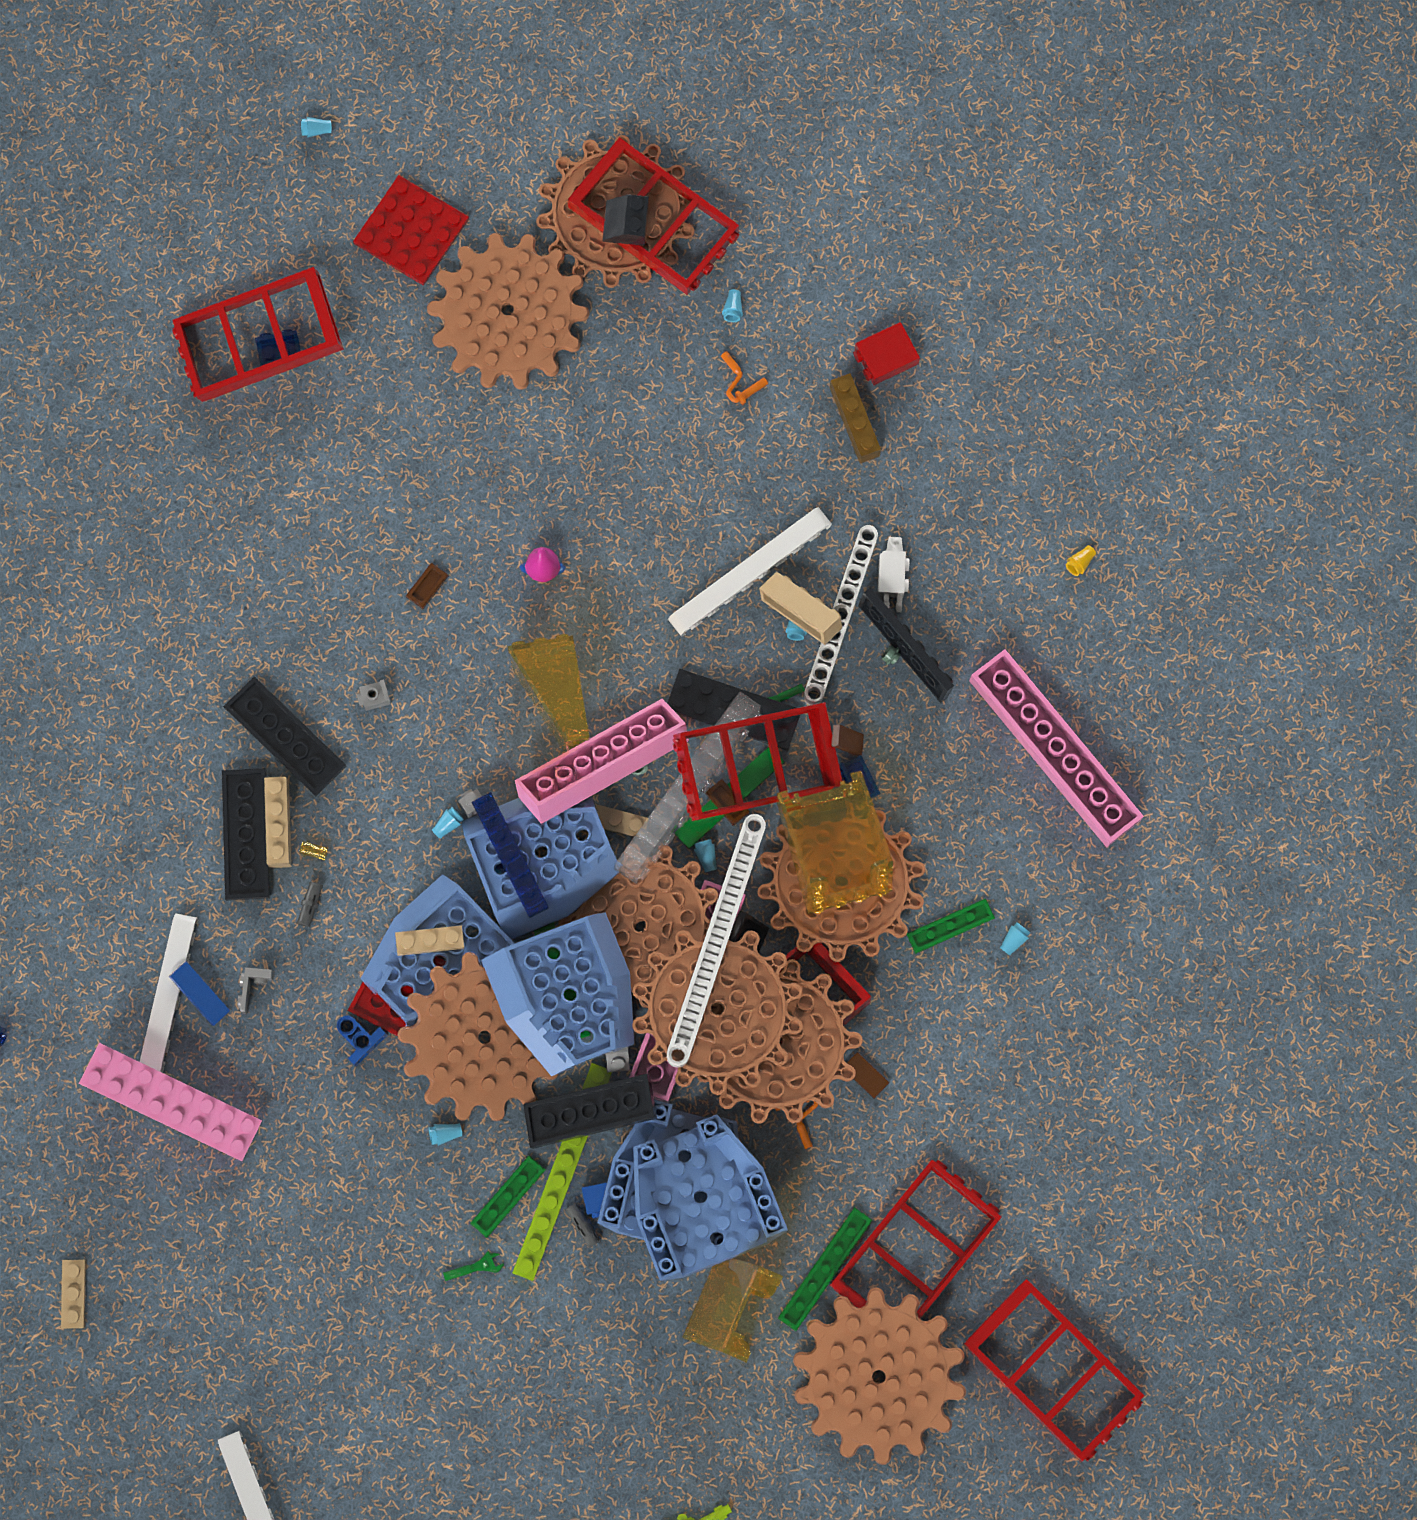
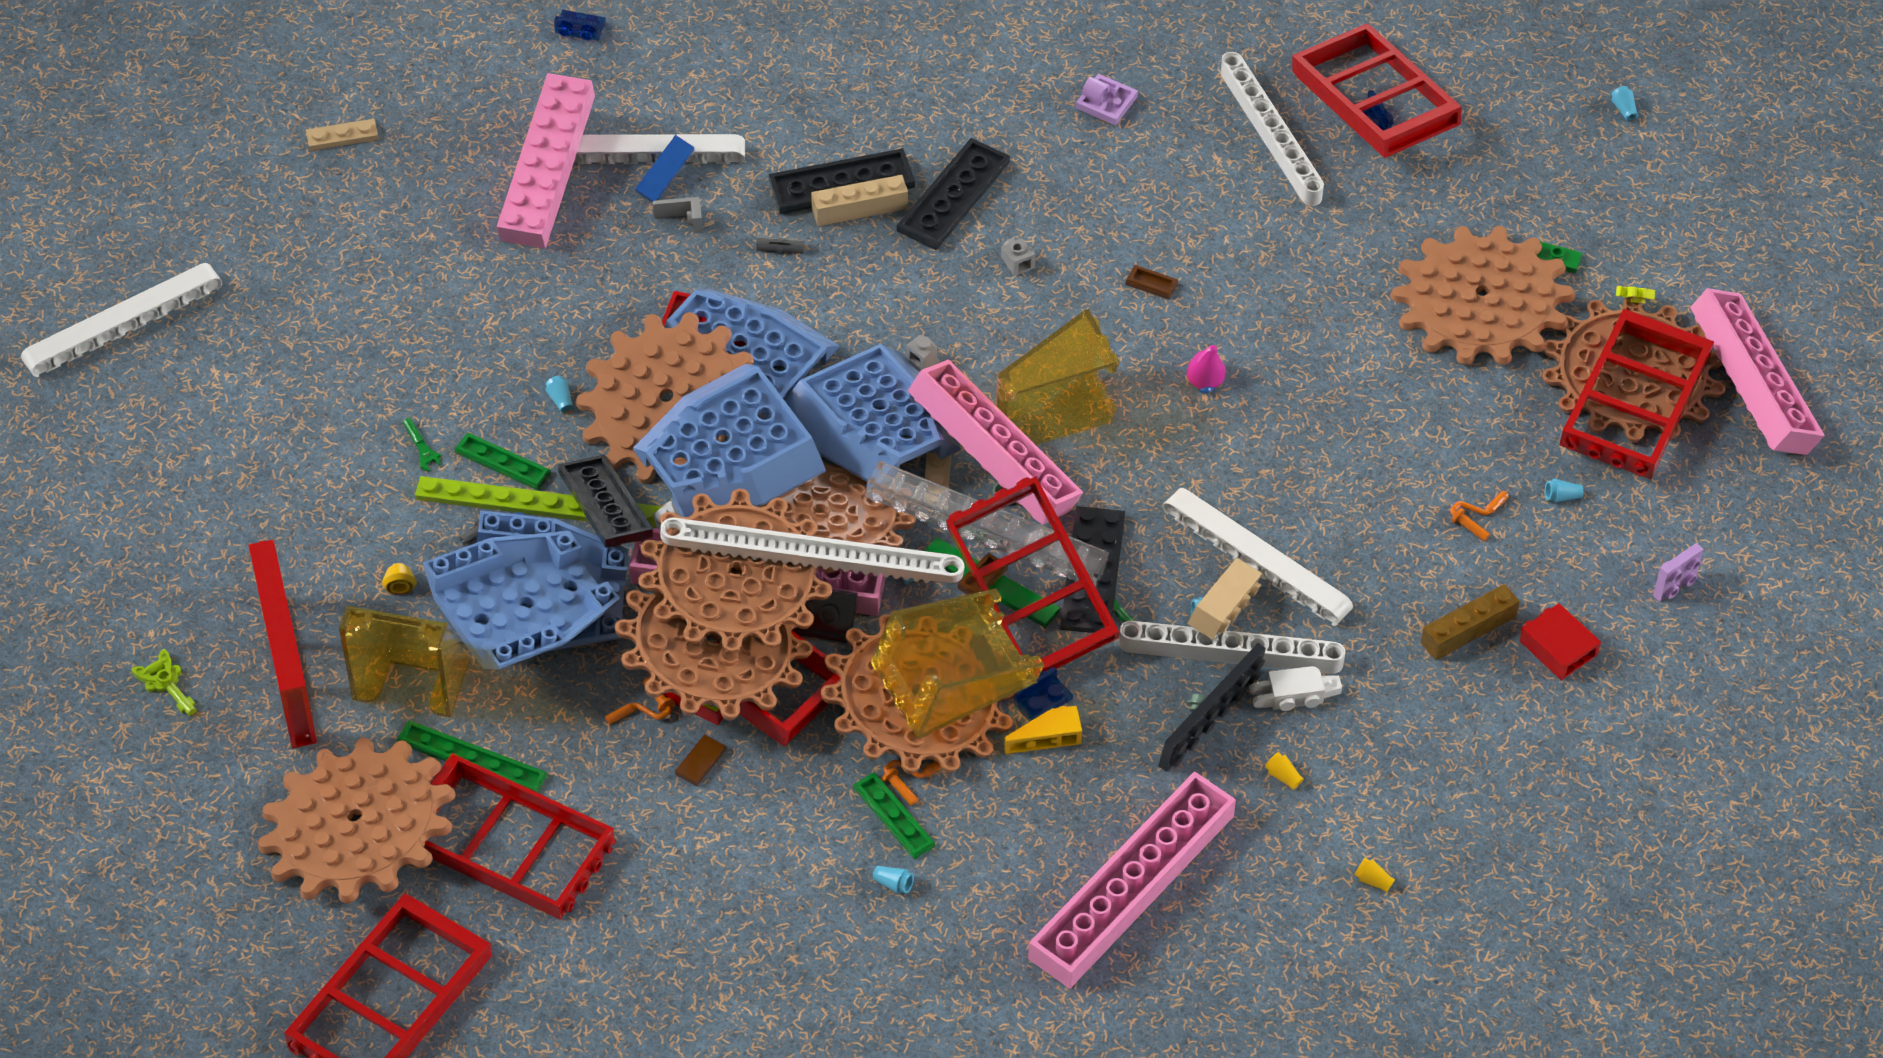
camera: 80 degrees right, 25 degrees down
(202, 574) = (1106, 99): none -> lavender plate
(263, 434) = (1272, 129): none -> white beam
(313, 850) = (838, 232): clear yellow pin -> none
(355, 1034) = (648, 301): blue tile -> none
(411, 230) = (1543, 202): red plate -> none
(429, 940) = (758, 326): tan plate -> none
(449, 821) = (895, 339): medium azure cone -> none
(477, 234) = (1570, 257): none -> green plate
(510, 855) = (868, 379): clear blue tile -> none
(540, 184) = (1637, 295): none -> neon yellow plate
(626, 220) = (1618, 361): black slope -> none
(626, 1306) = (399, 579): none -> yellow cone
(650, 113) = (1757, 372): none -> bright pink brick
(701, 1417) = (282, 644): none -> red window
(841, 236) = (1678, 572): none -> lavender plate
(847, 740) = (1084, 671): reddish brown tile -> none
(895, 781) = (1050, 730): none -> yellow slope
(914, 920) = (891, 776): none -> orange piece
(968, 605) = (1283, 770): none -> yellow cone

